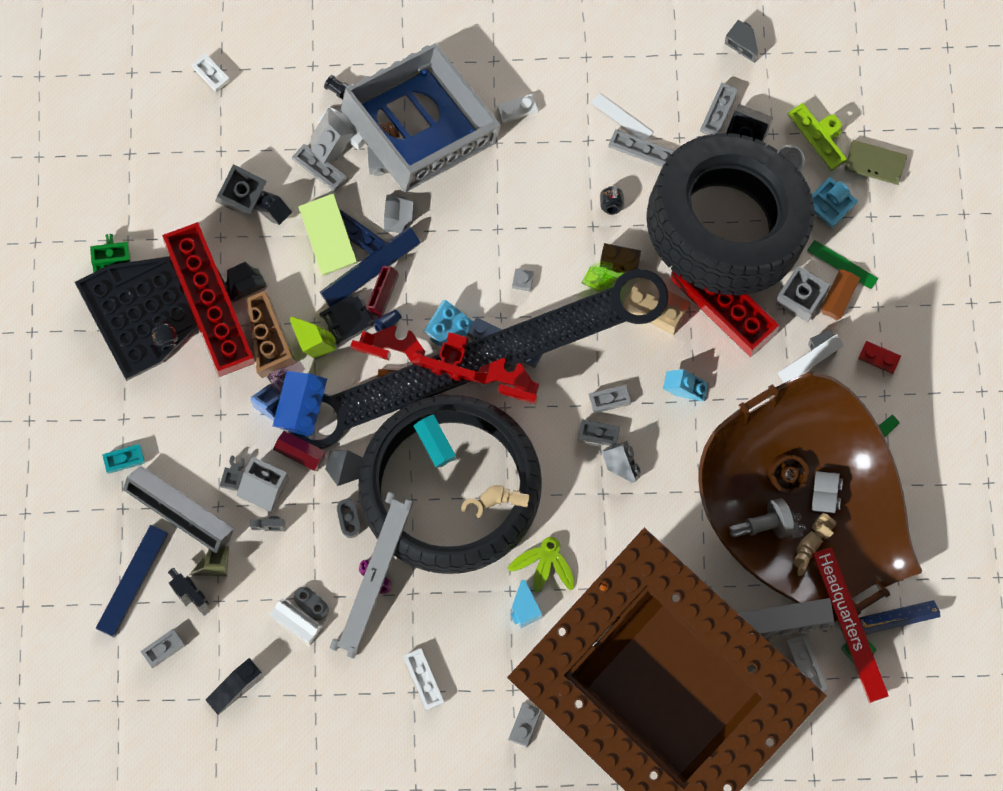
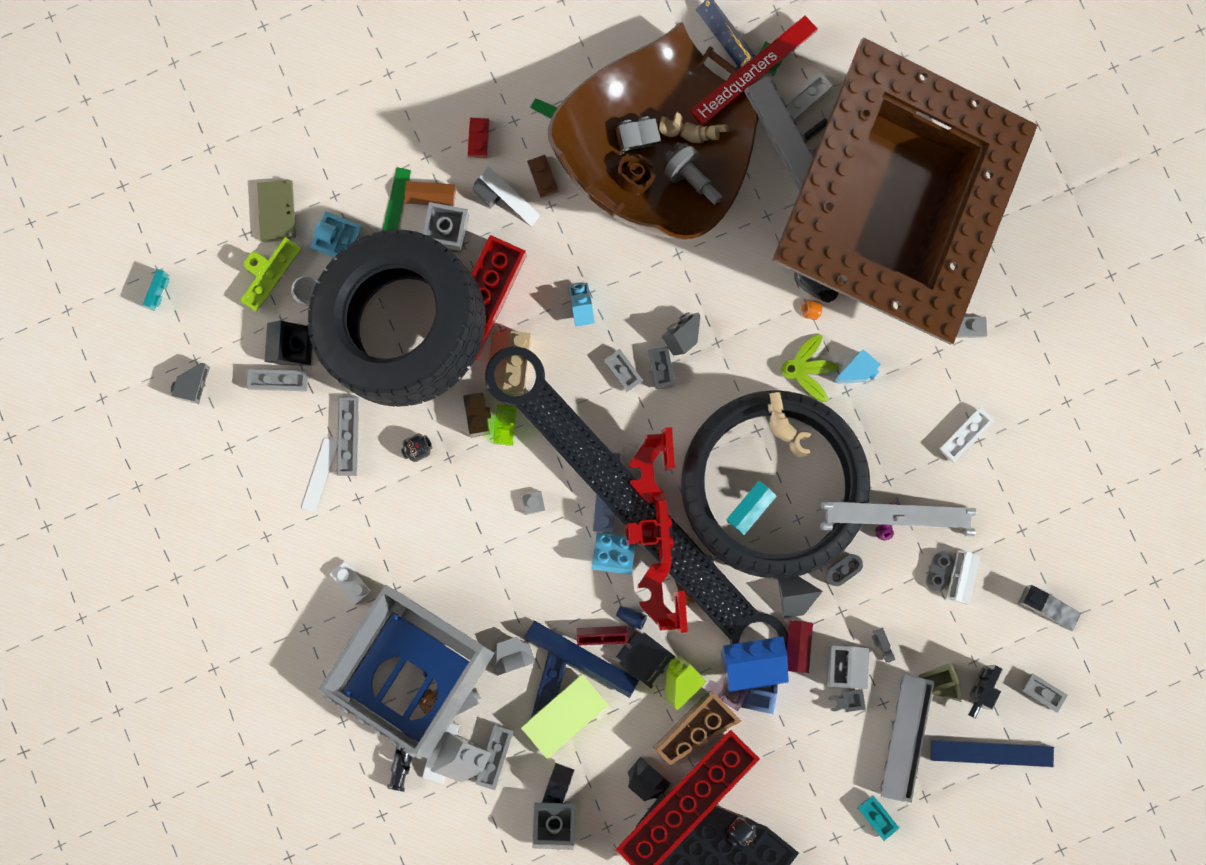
camera: 115 degrees left, 10 degrees up
(837, 38) = (153, 297): none -> teal plate

